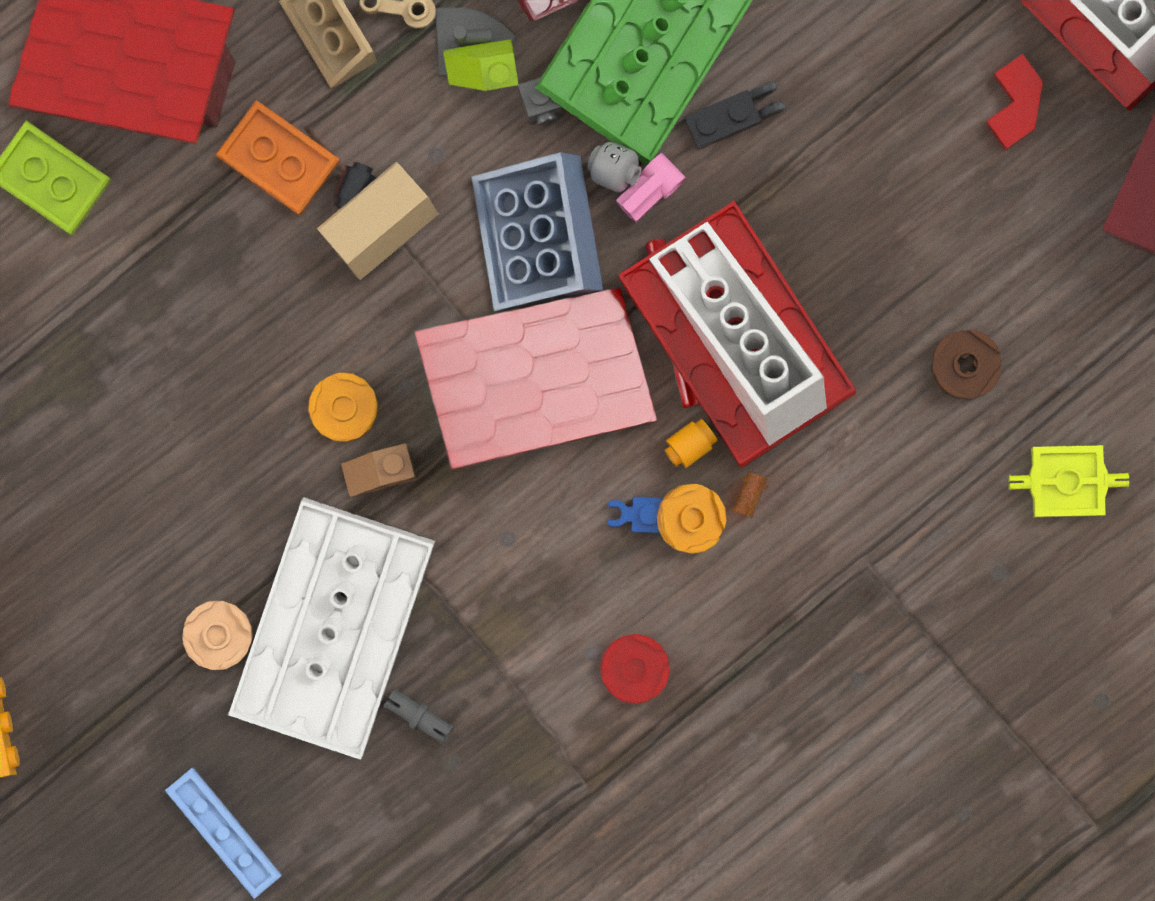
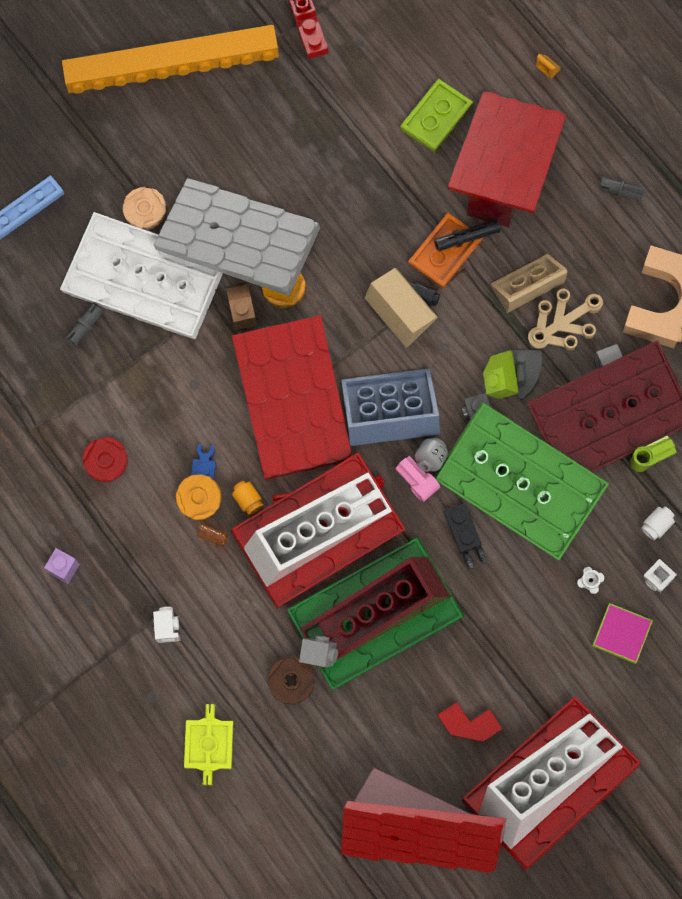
camera: 90 degrees right, 10 degrees down
(265, 482) = (237, 236): none -> light grey piece
(270, 156) = (458, 238): none -> black pin
(810, 720) = (61, 566): none -> lavender brick
(858, 244) = (378, 611): none -> piece
(893, 555) = (165, 625): none -> white brick
(928, 321) = (318, 651): none -> light grey brick

